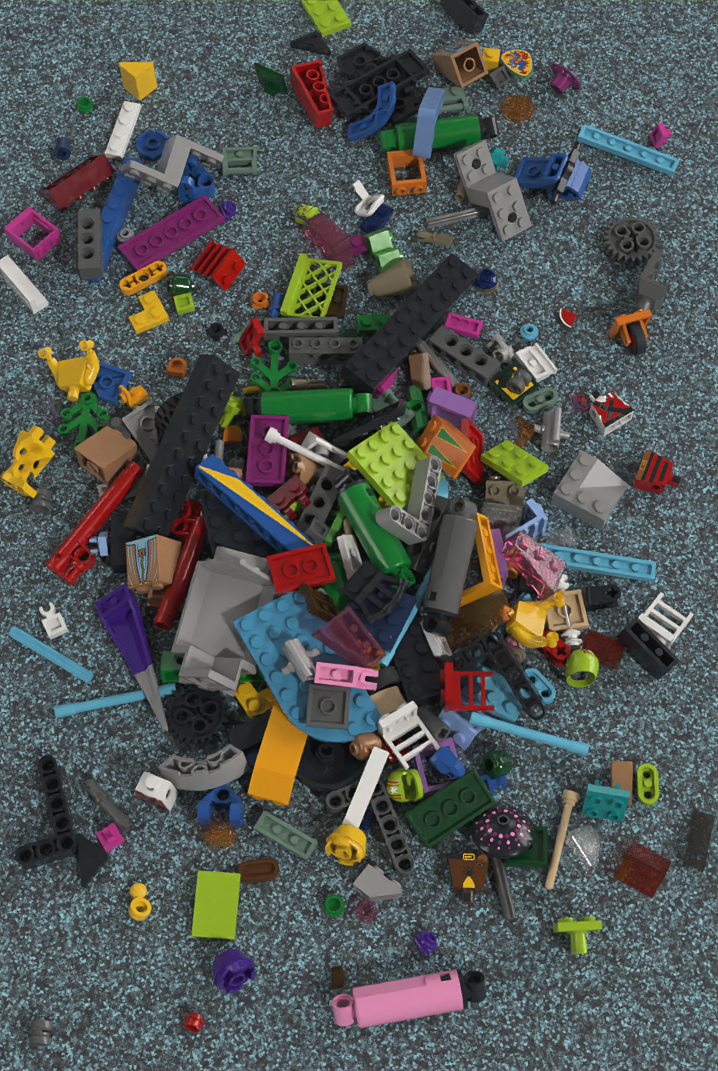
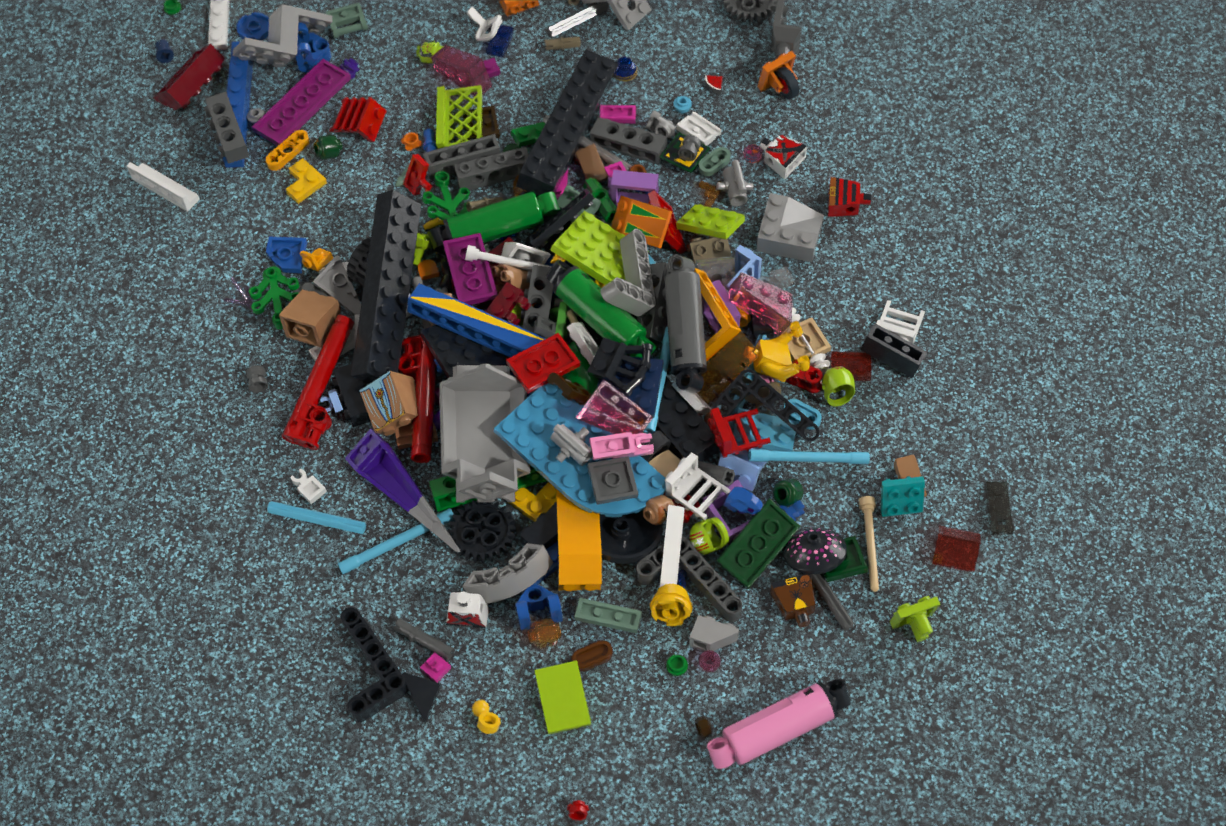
camera: 15 degrees left, 5 degrees down
(22, 466) = (228, 335): yellow hips -> none
(25, 221) = (150, 126): dark pink window -> none
(74, 374) = (251, 253): yellow torso -> none
(176, 367) = (350, 223): orange tile -> none
(184, 303) = (337, 162): lime plate -> none
(216, 327) = (378, 180): black plate -> none
(232, 970) = (600, 749): dark purple cone -> none
(380, 246) = (512, 62): bright green brick -> none
(394, 281) = (537, 89): dark tan cone -> none
(426, 942) = (776, 672): dark purple plate -> none
(585, 847) = (897, 543): clear slope -> none
(597, 597) = (832, 319): black piece -> none
(605, 563) = (831, 288): medium azure plate -> none
(648, 785) = (935, 473): lime plate -> none

